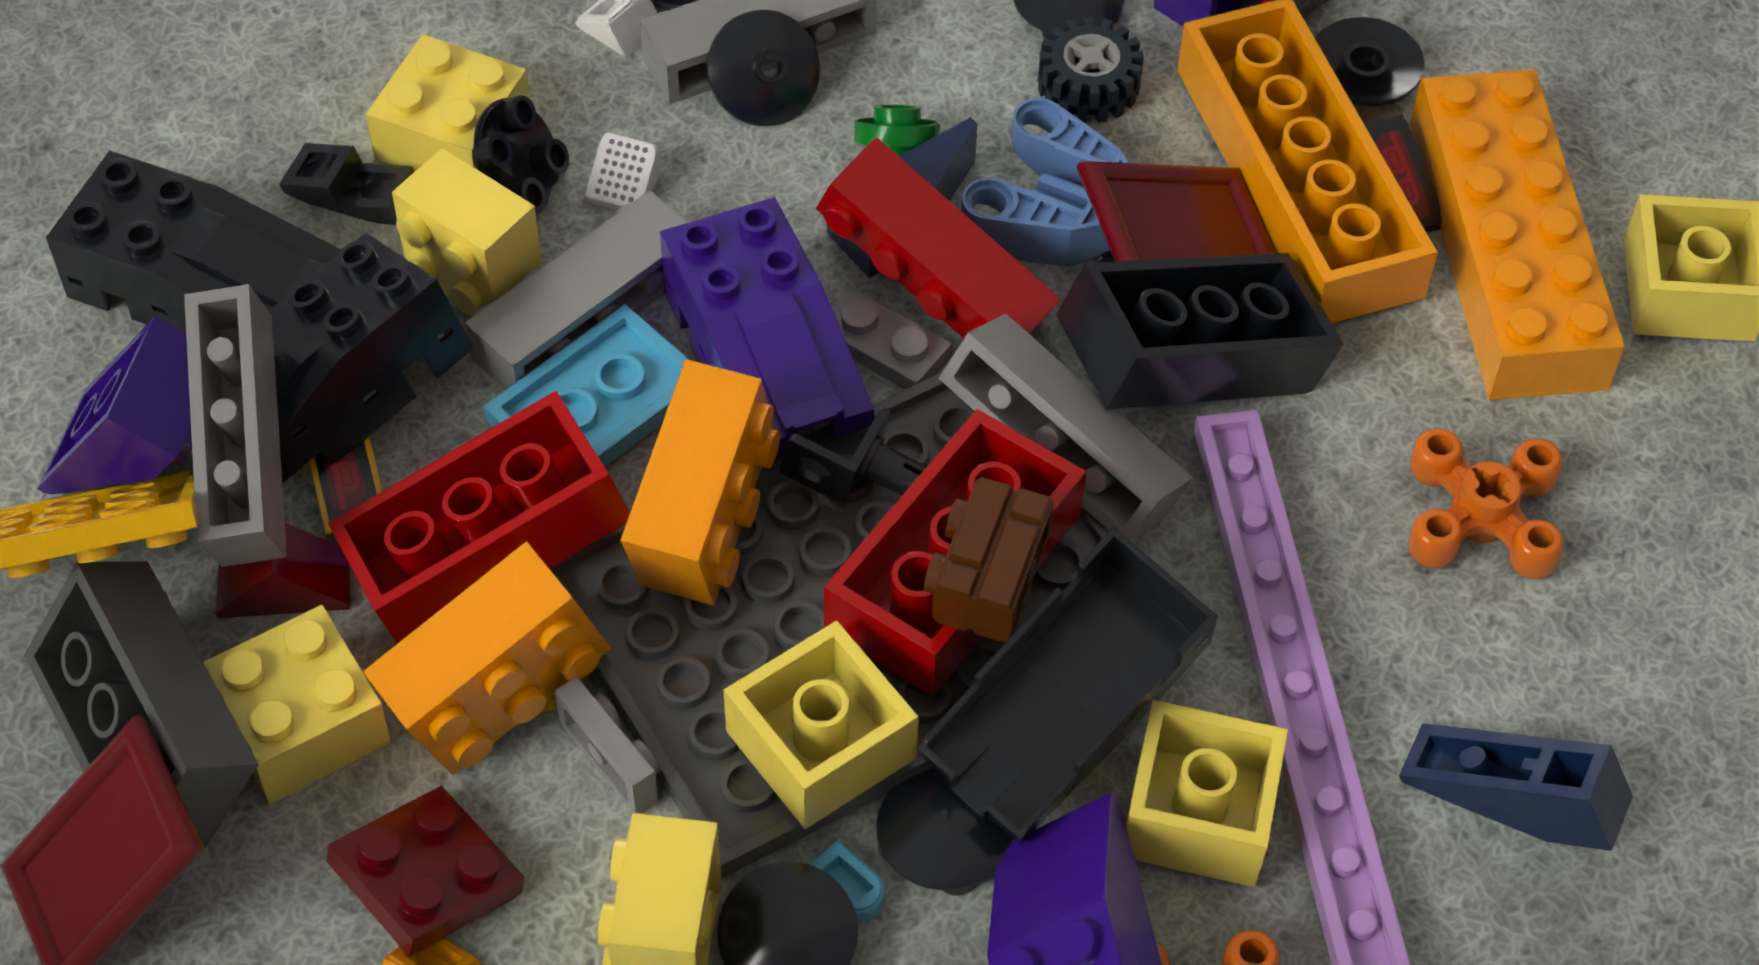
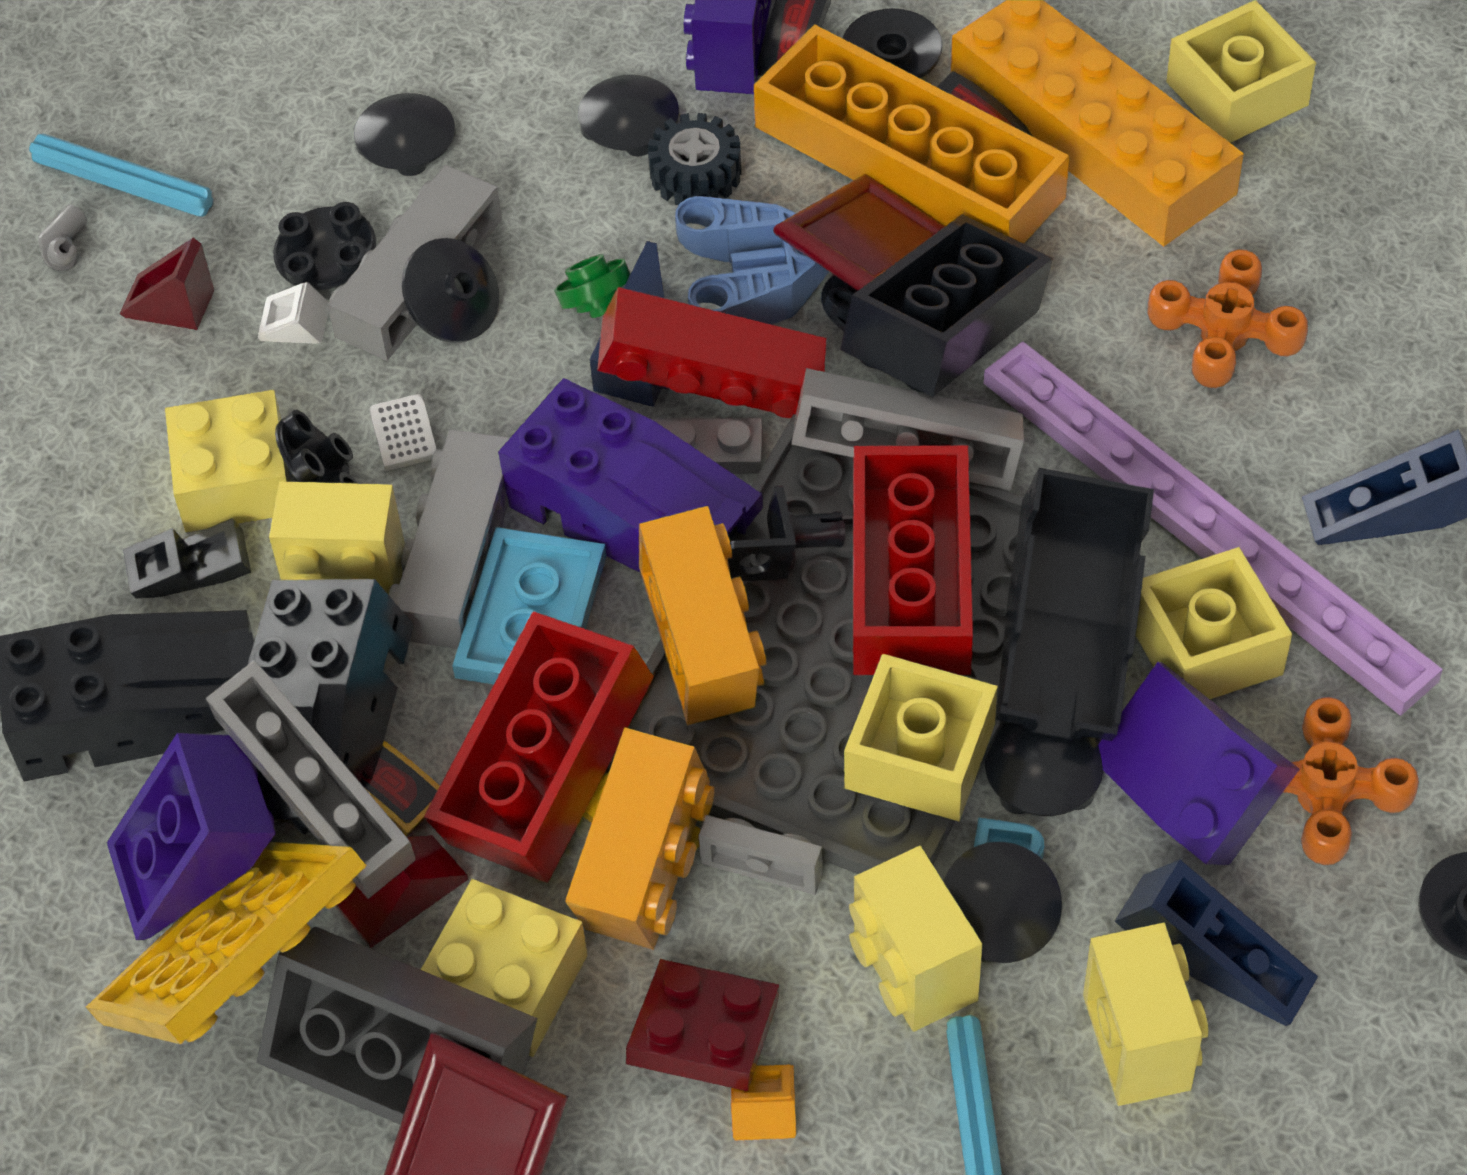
camera: 30 degrees left, 0 degrees up
(990, 558) = (965, 543): reddish brown brick -> none

